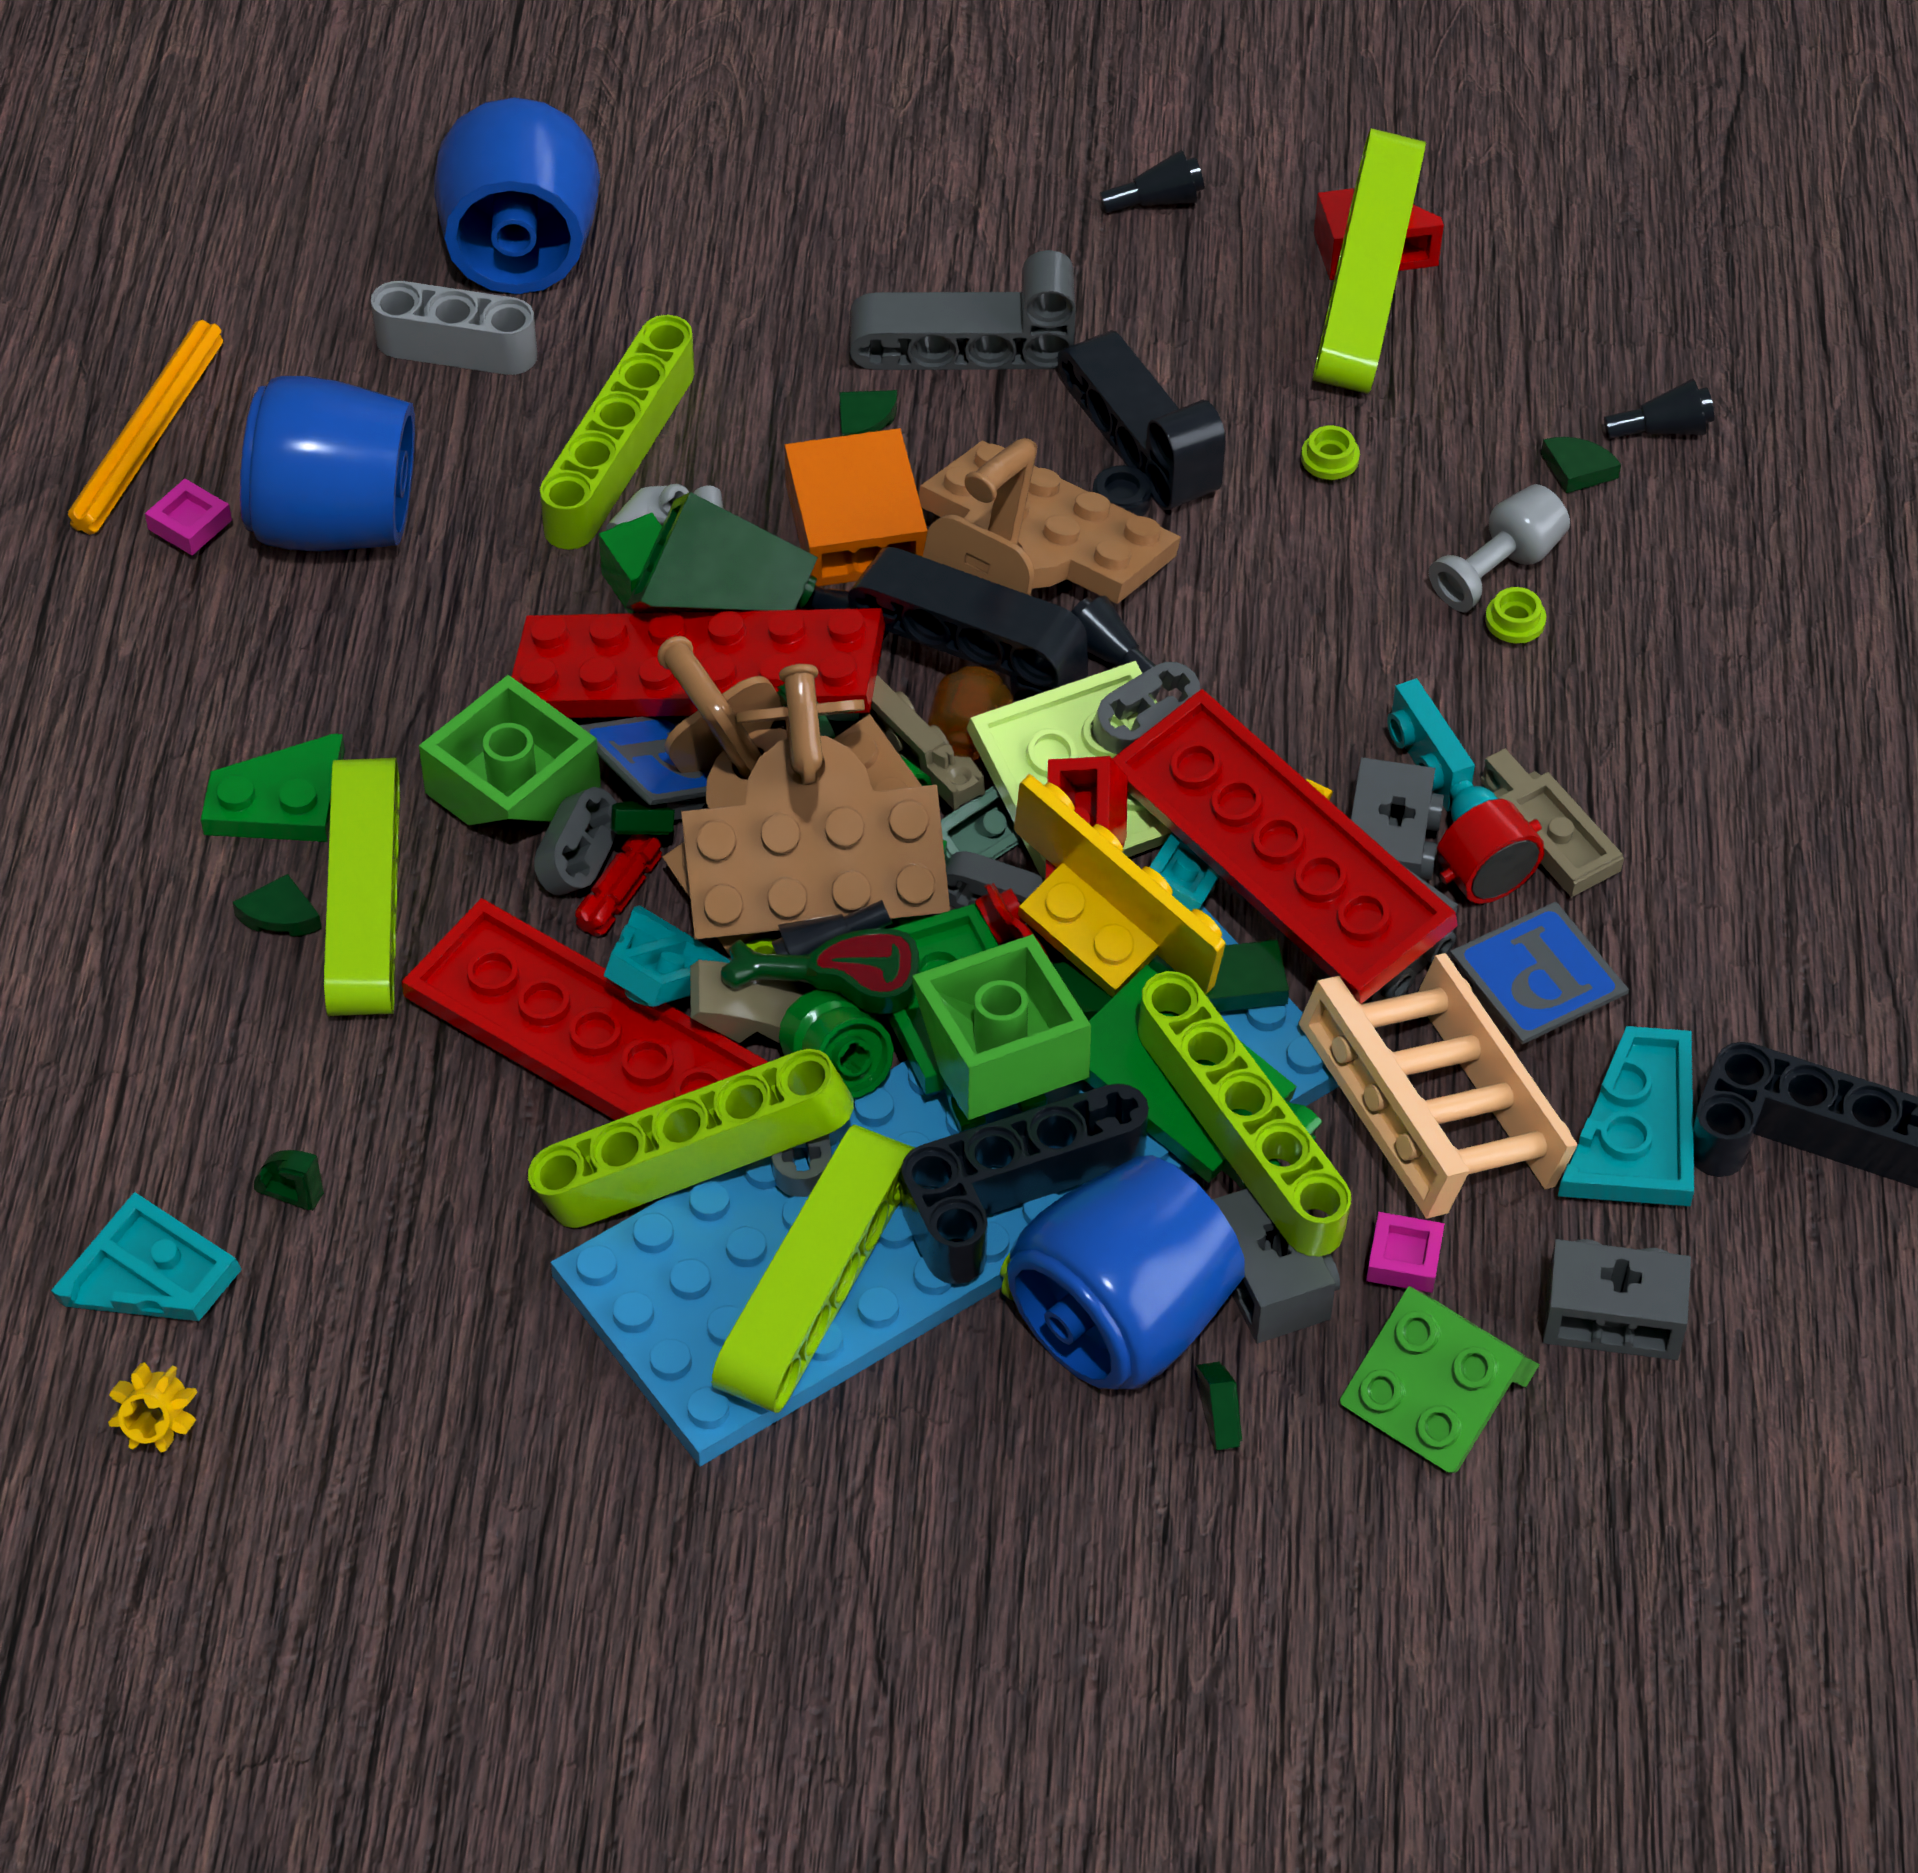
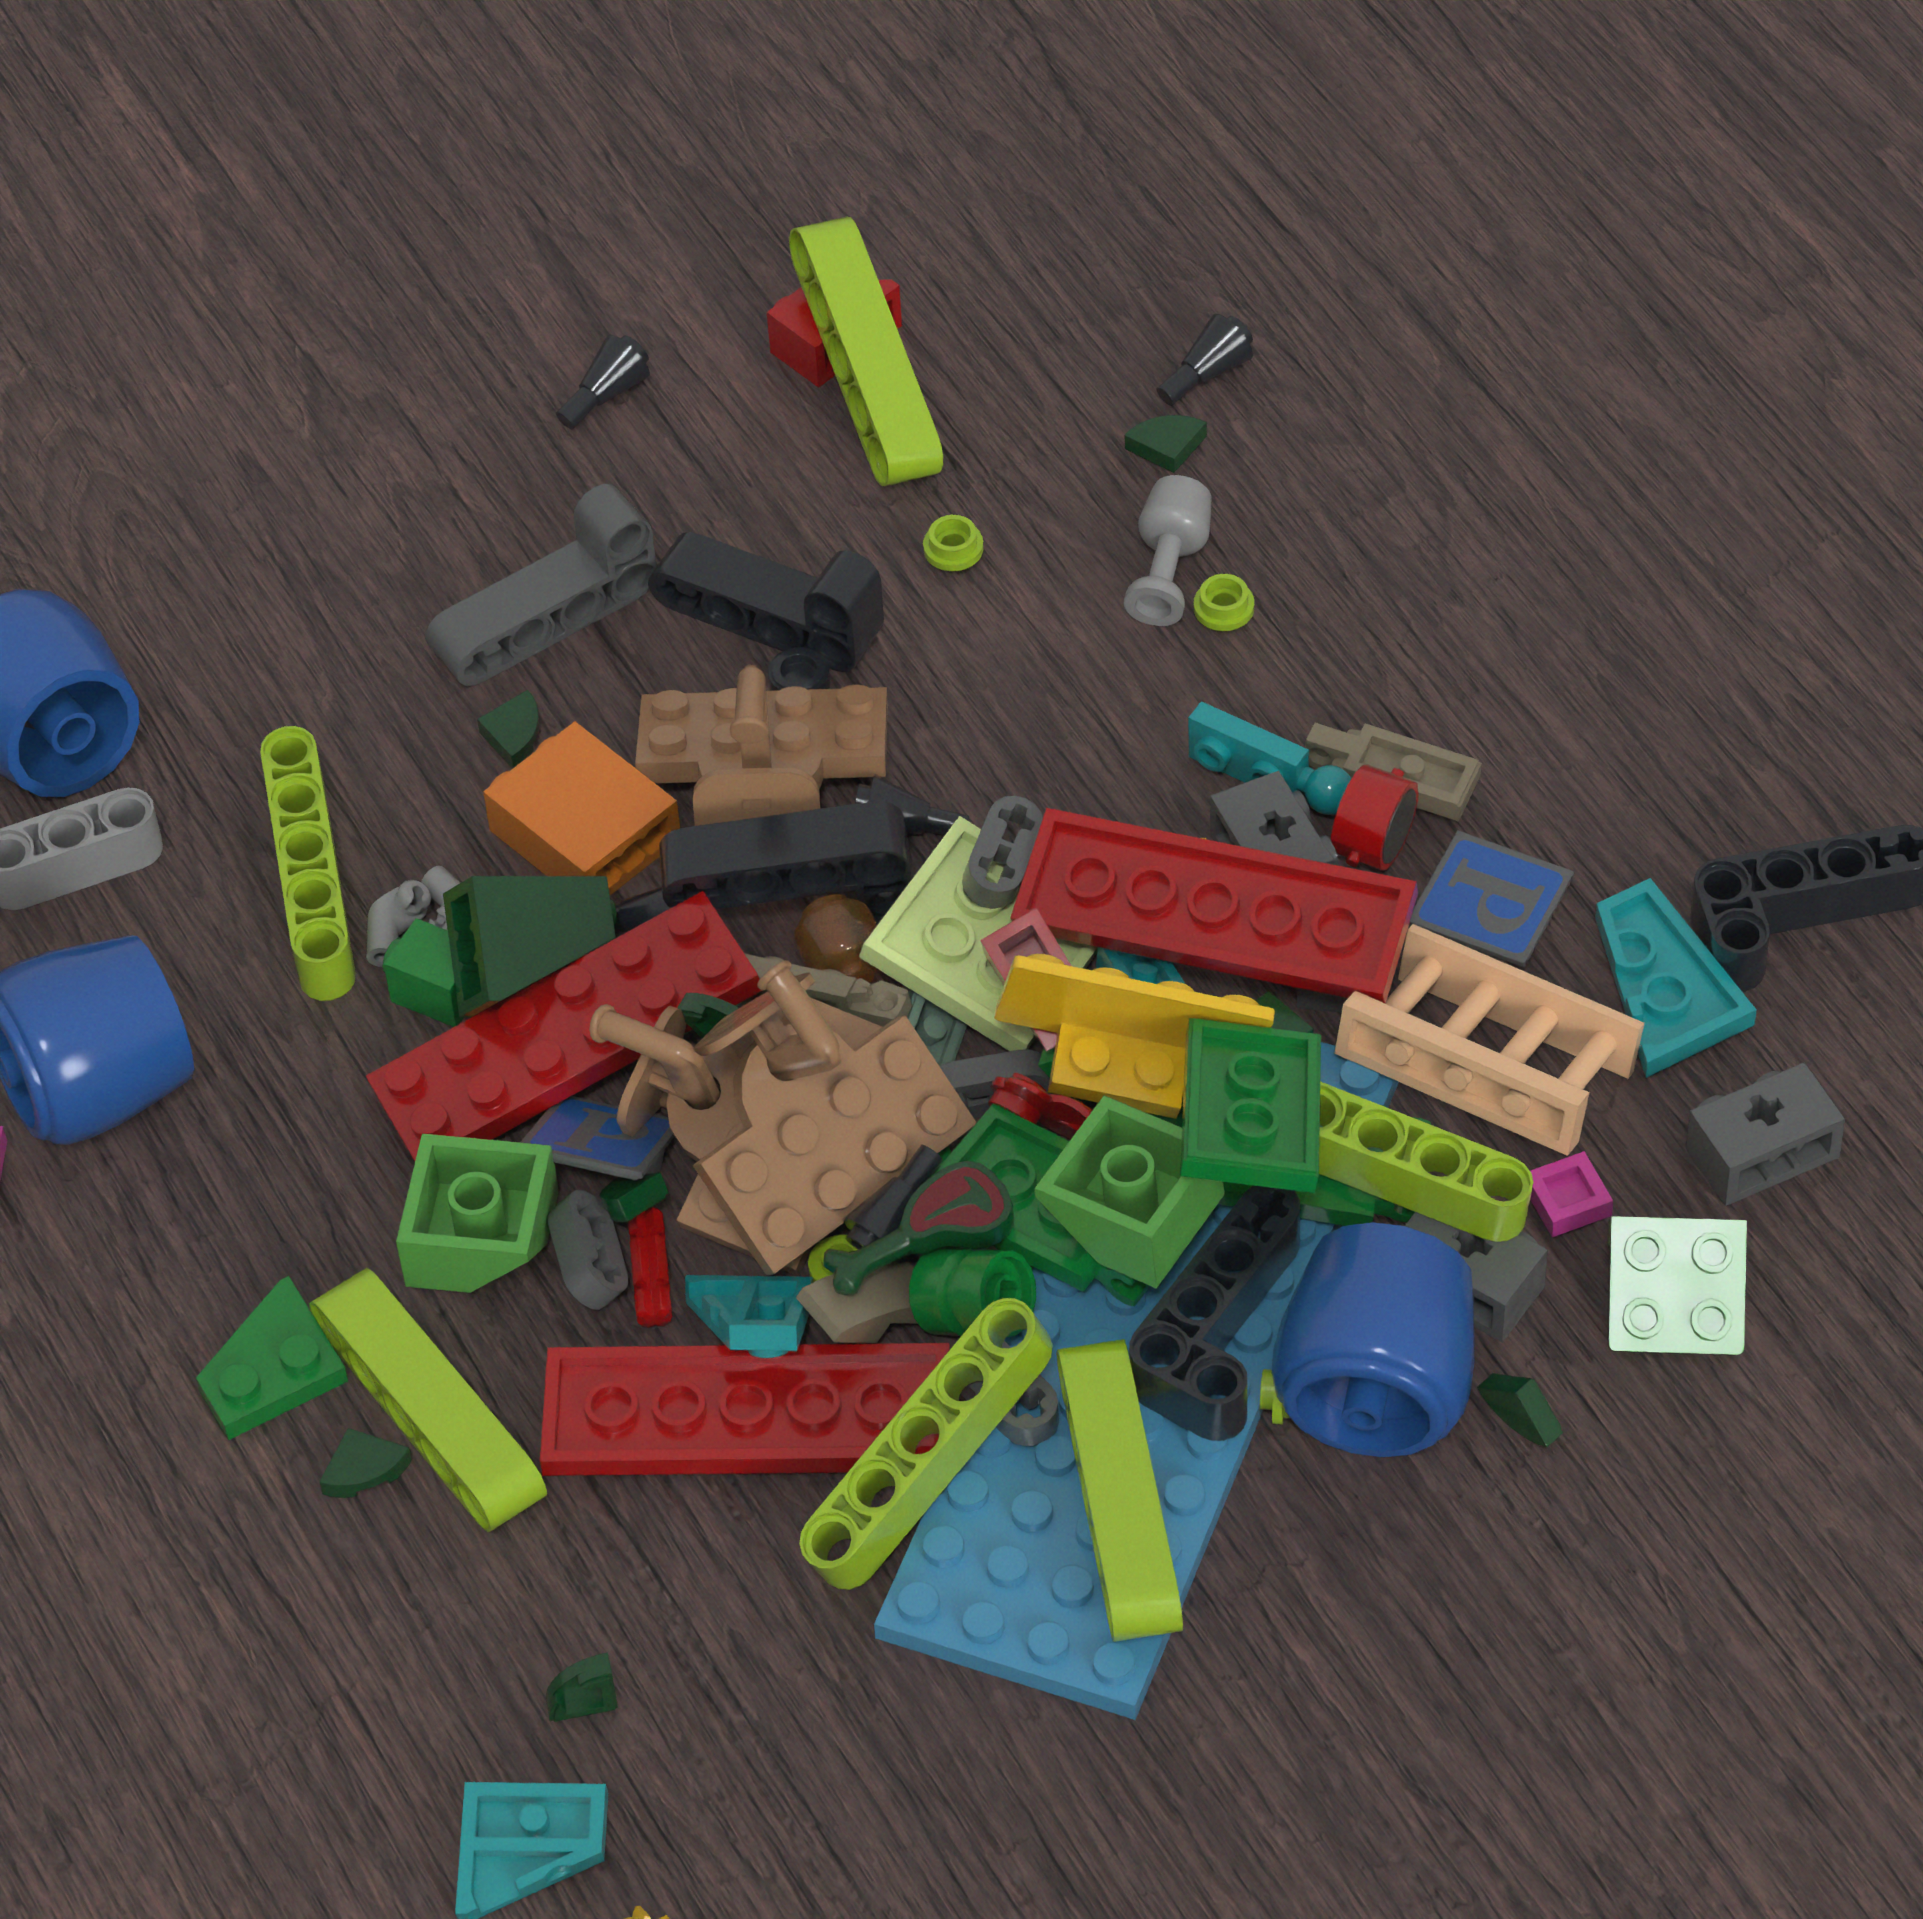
camera: 30 degrees left, 0 degrees up
(1143, 1009) = (1251, 1105): none -> green tile

